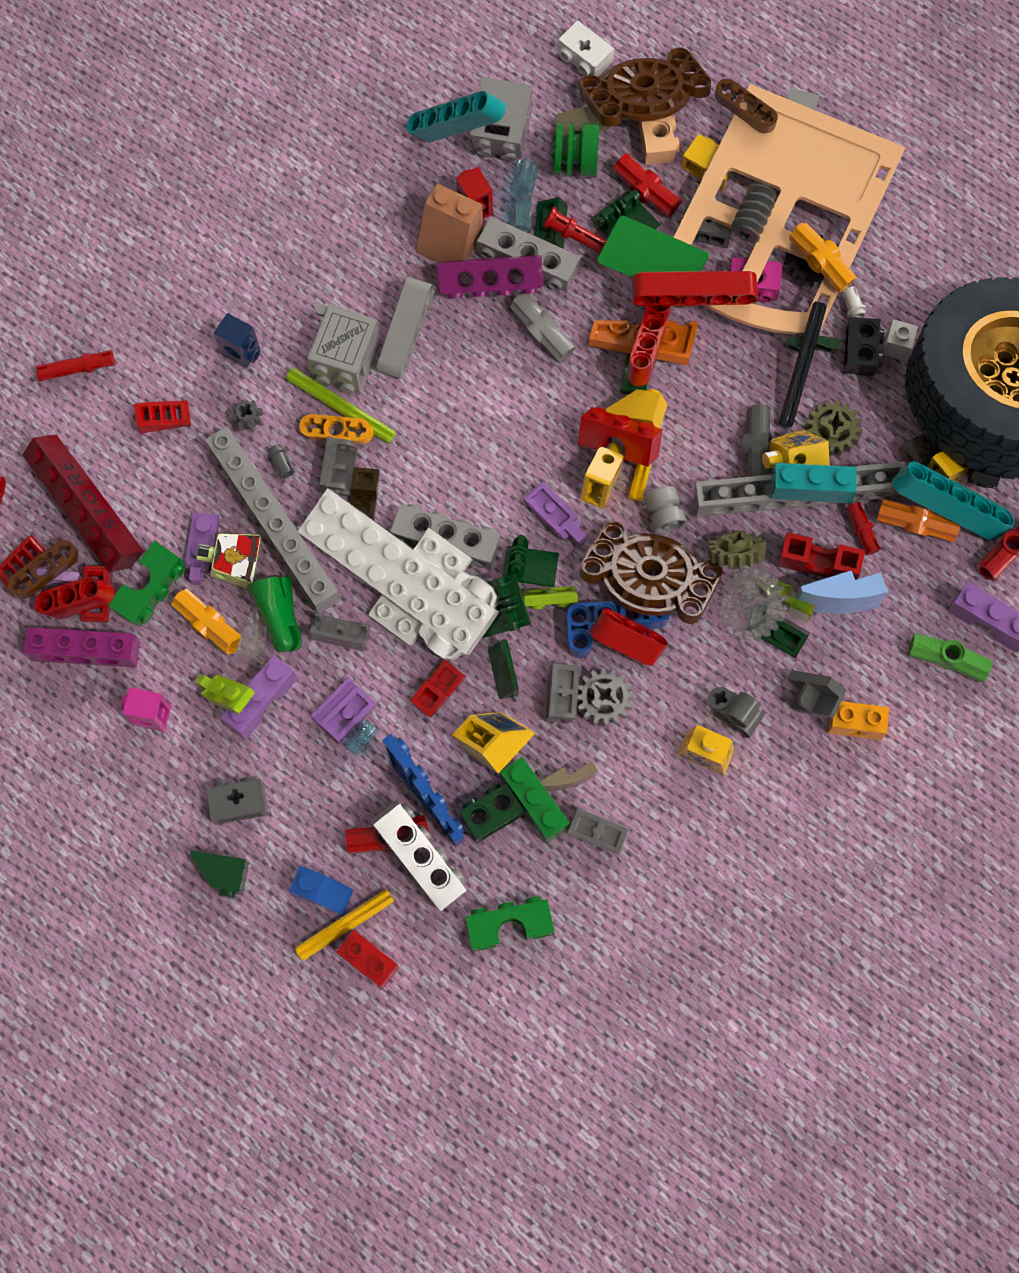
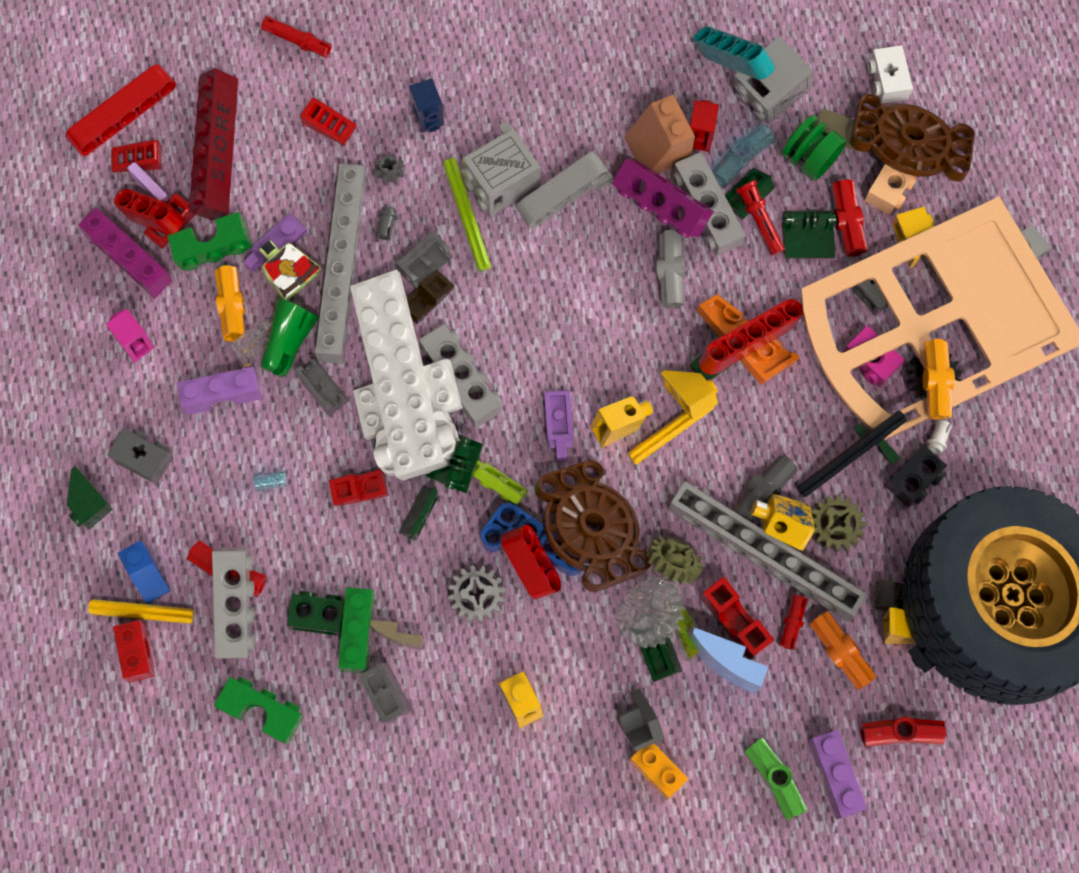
camera: 35 degrees right, 0 degrees up
(55, 552) = (149, 180): reddish brown beam -> none
(224, 692) = (195, 366): lime hinge -> none
(328, 421) = (445, 219): light orange beam -> none
(344, 710) = (274, 449): medium lavender plate -> none
(418, 783) = (276, 551): blue plate -> none
(492, 738) = (363, 557): yellow slope -> none
(530, 565) = (505, 447): dark green hinge -> none
(562, 693) = (446, 565): flat silver hinge -> none
(639, 438) = (668, 413): red arch -> none
(640, 249) = (801, 279): green sticker -> none
(664, 506) = (646, 483): light grey wheel -> none
(694, 288) = (811, 327): red beam -> none
(739, 711) = (568, 685): dark grey piece -> none
(746, 115) = (982, 200): reddish brown beam -> none
(753, 212) = (909, 300): dark grey piece -> none
(813, 483) = (774, 553): teal brick -> none
(899, 340) = (950, 492): white brick -> none
(953, 501) = (880, 656): teal beam -> none

